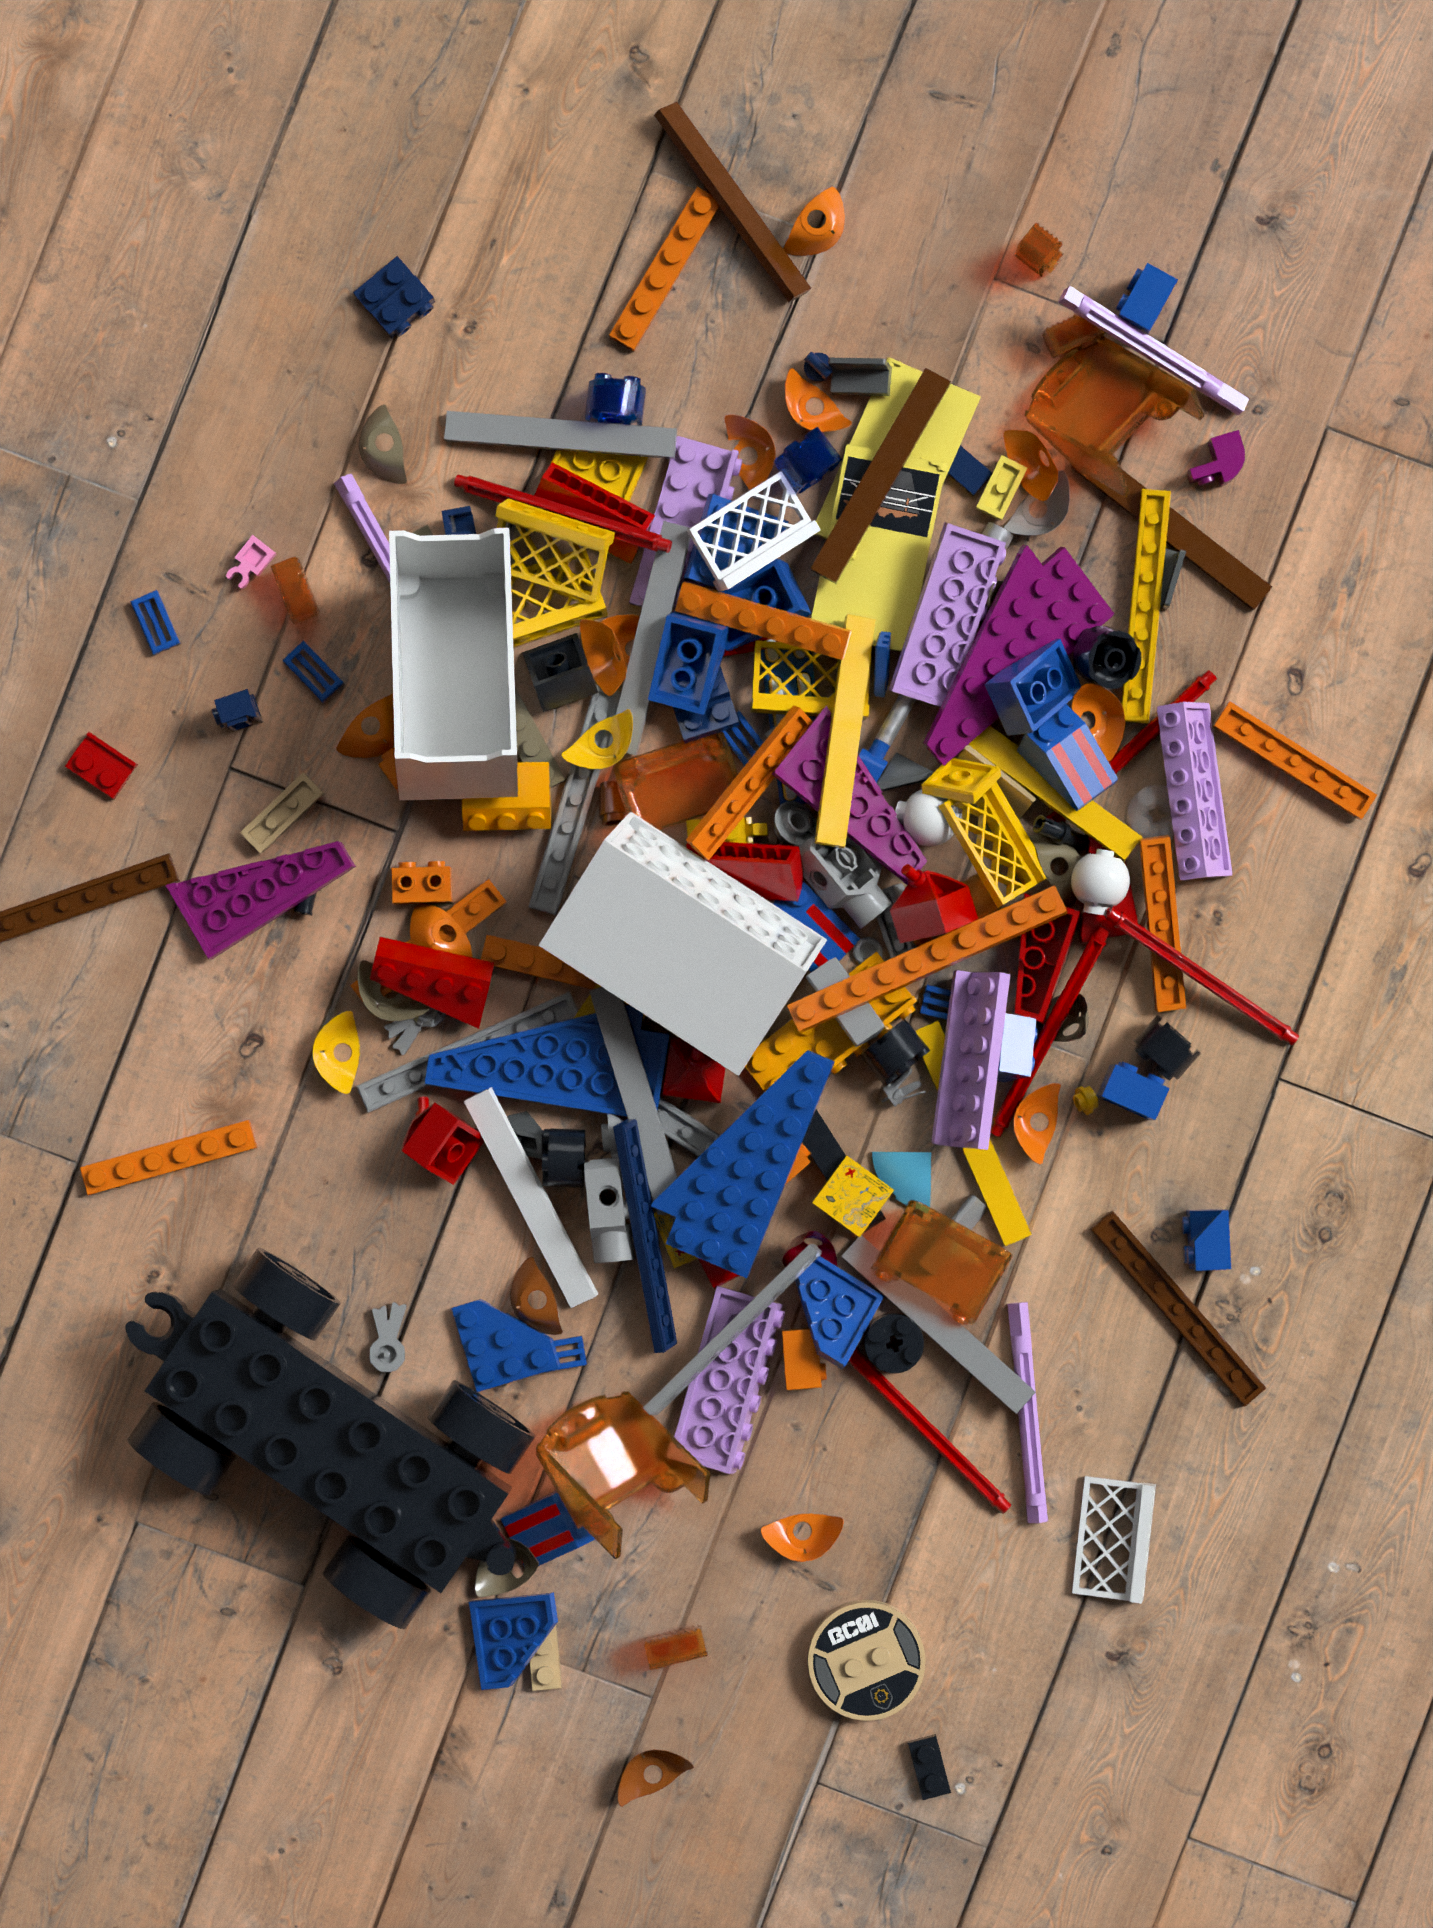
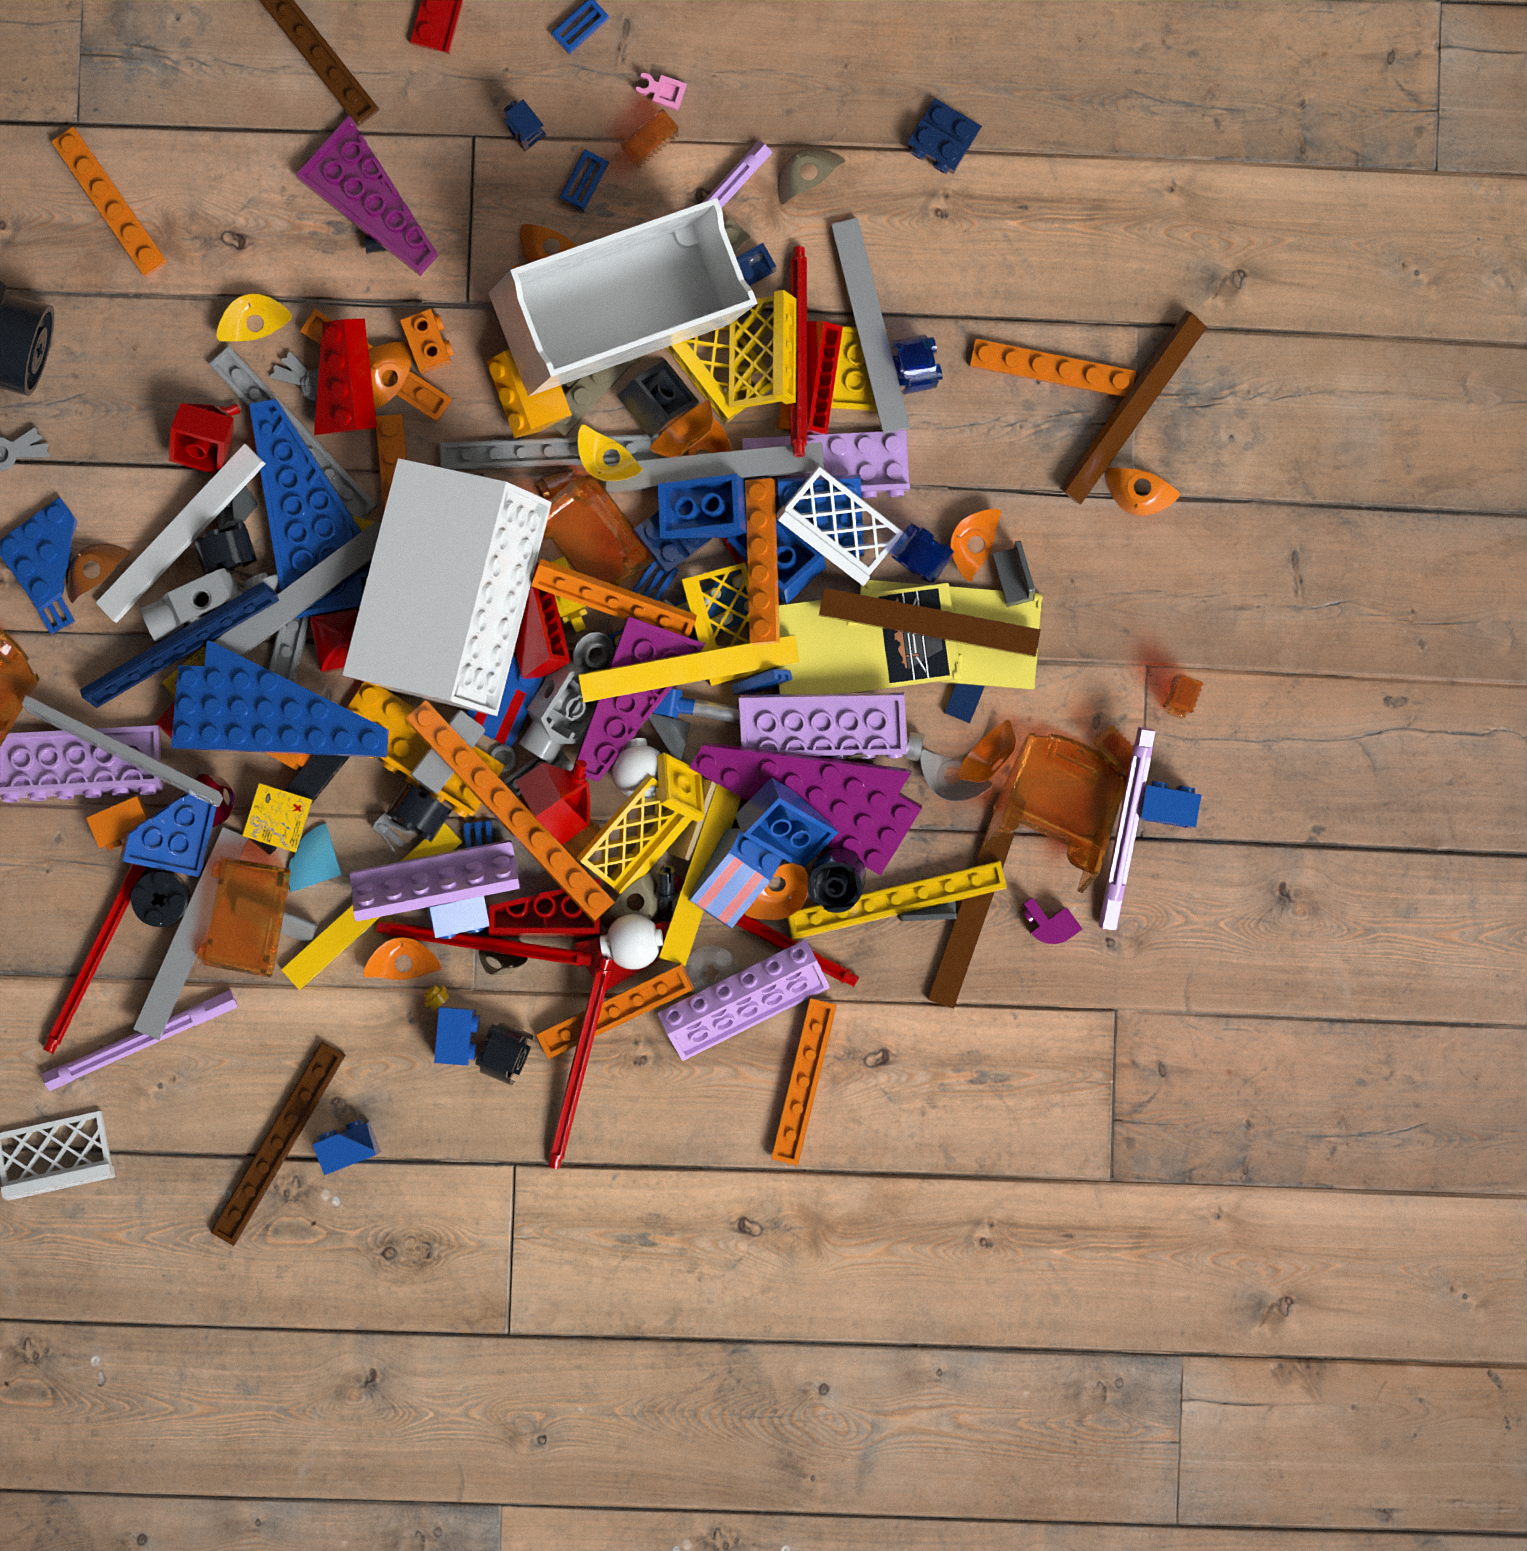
camera: 75 degrees right, 0 degrees up
(282, 813) = (448, 195): tan plate -> none
(393, 1009) = (304, 350): dark tan piece -> none
(755, 436) = (929, 500): orange piece -> none
(817, 367) = (1010, 533): dark blue plate -> none
(1001, 488) = (959, 735): light yellow plate -> none

